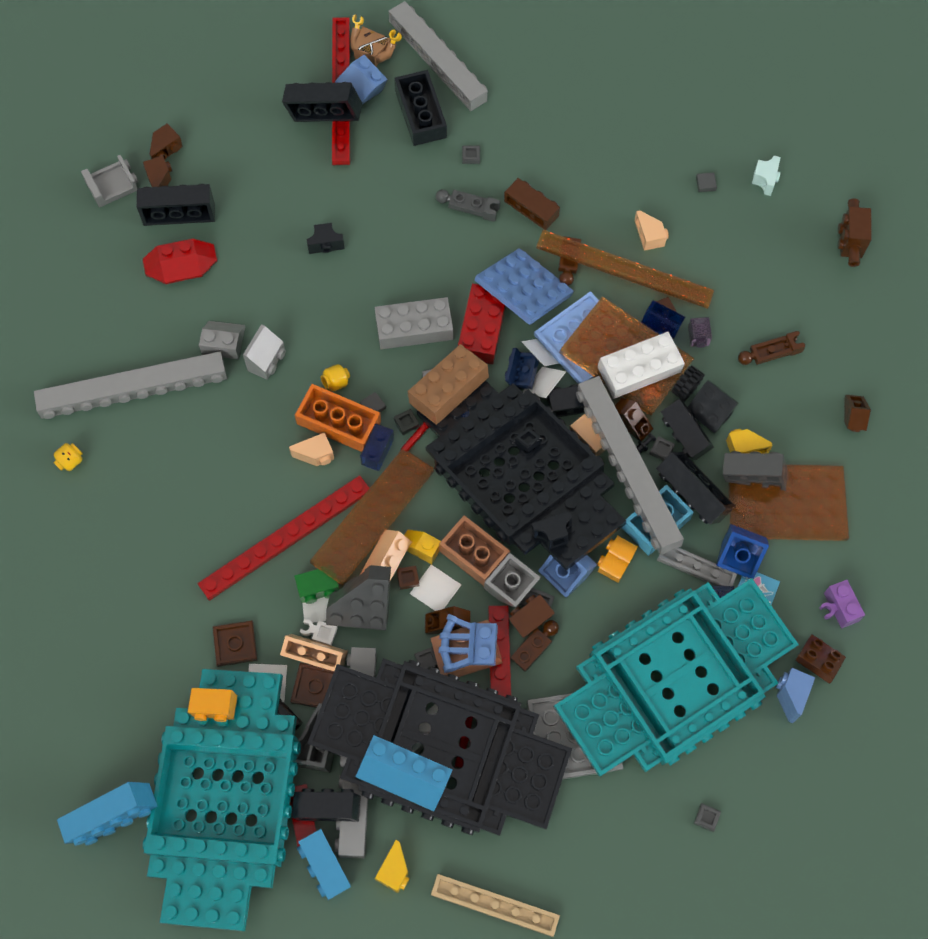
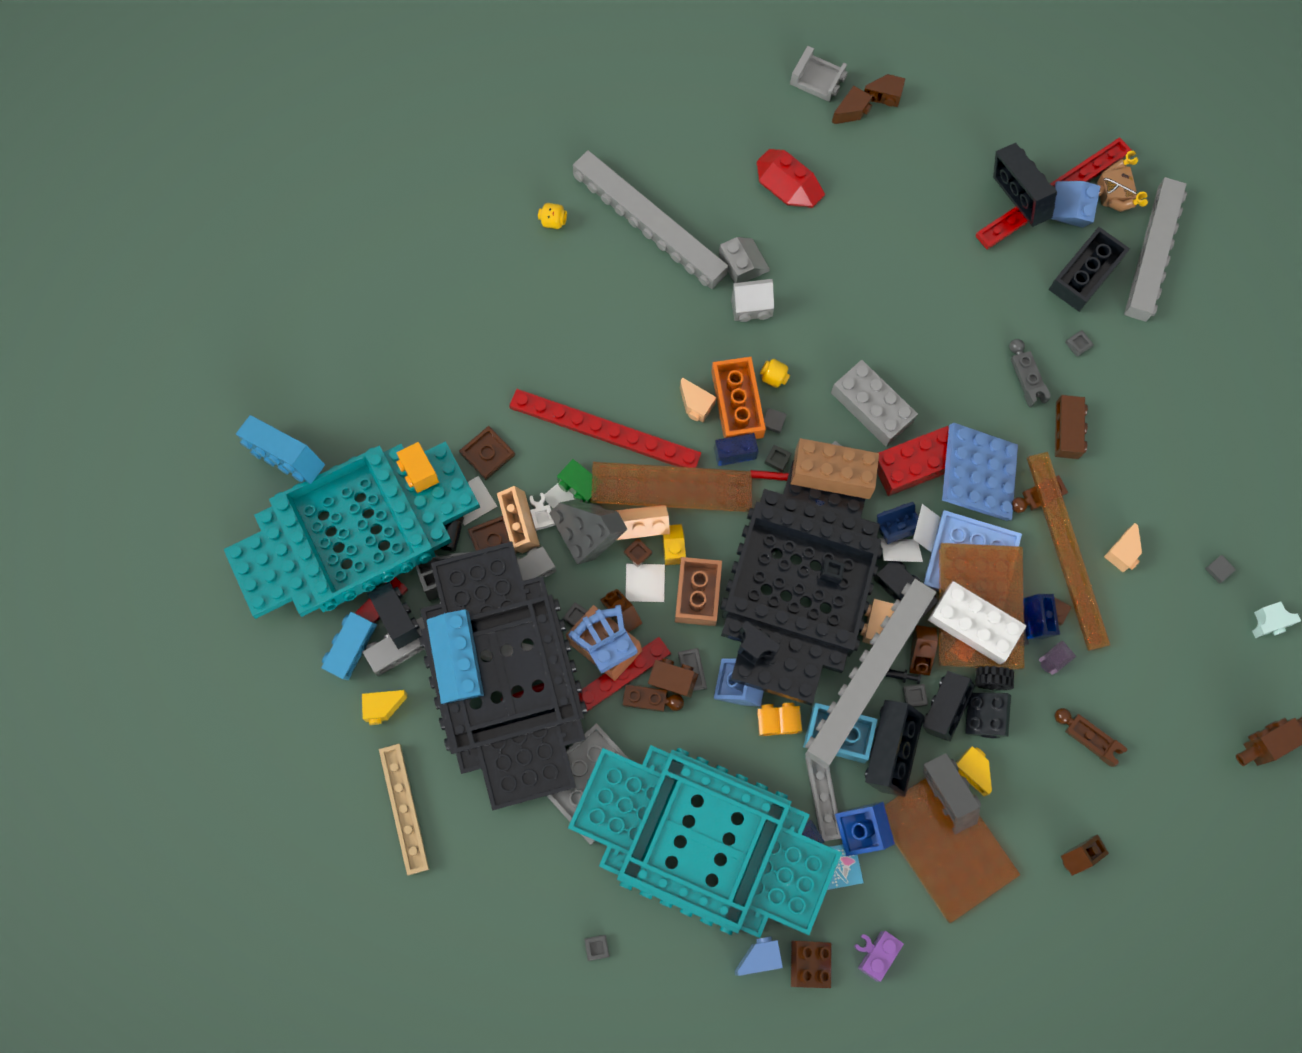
camera: 55 degrees right, 5 degrees up
(175, 204) = (834, 138): black brick -> none
(325, 239) = (897, 277): black brick -> none
(511, 581) = (692, 640): light grey slope -> none

